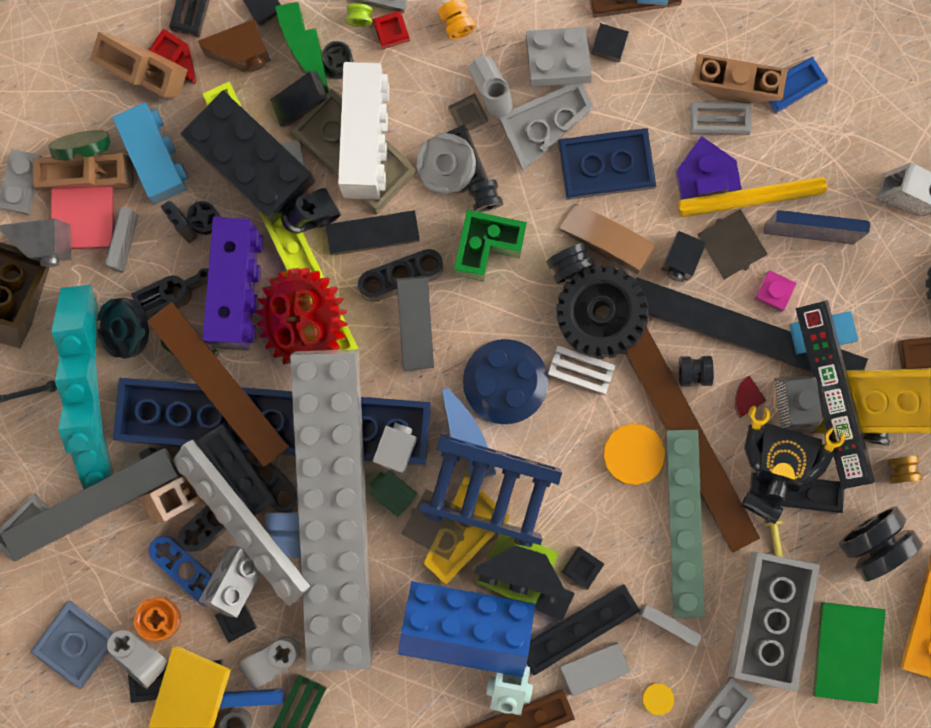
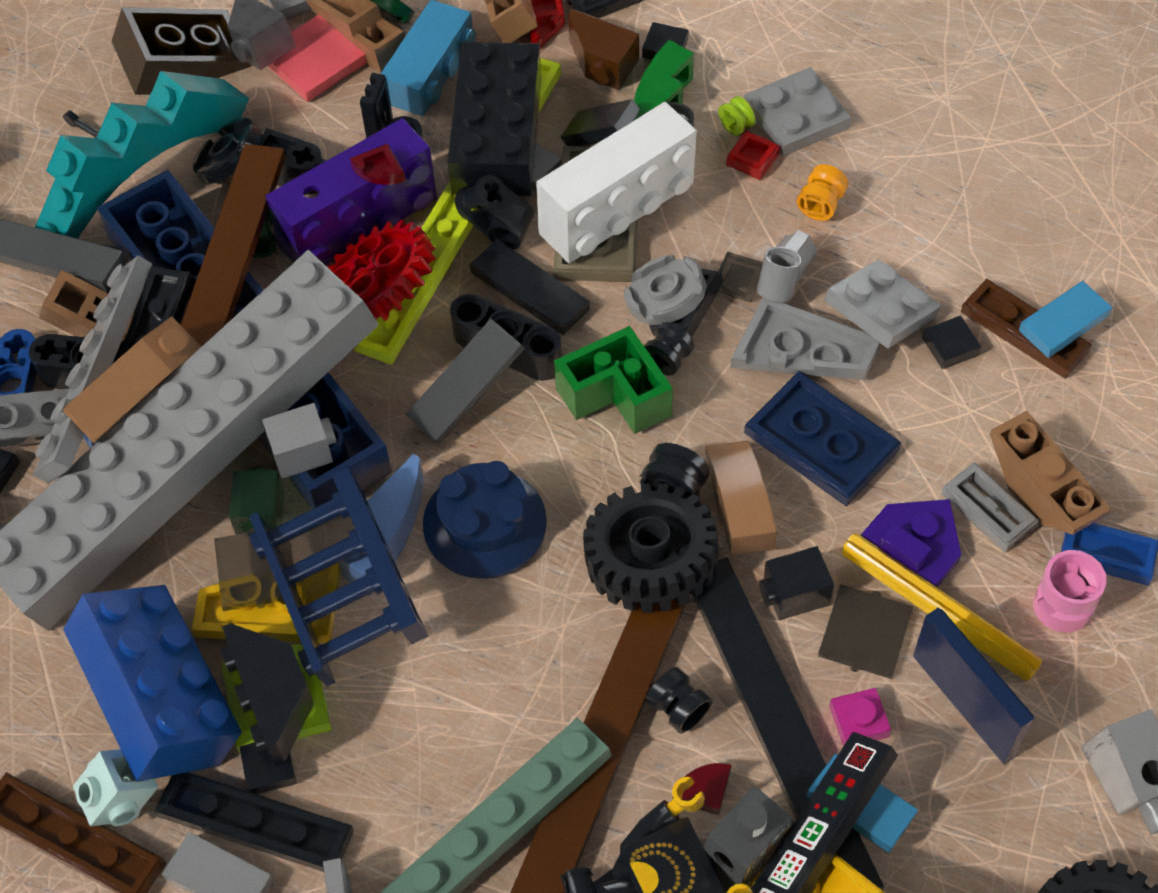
camera: 50 degrees right, 25 degrees down
(121, 239) = (319, 94): light grey tile -> none
(242, 260) = (378, 166): none -> dark red tile
(280, 510) = (131, 379): none -> medium nougat slope
(582, 567) = (334, 767): black tile -> none
(606, 378) = (556, 555): white tile -> none
(634, 454) = (519, 714): light orange tile -> none
(805, 130) = (1069, 591): none -> bright pink wheel

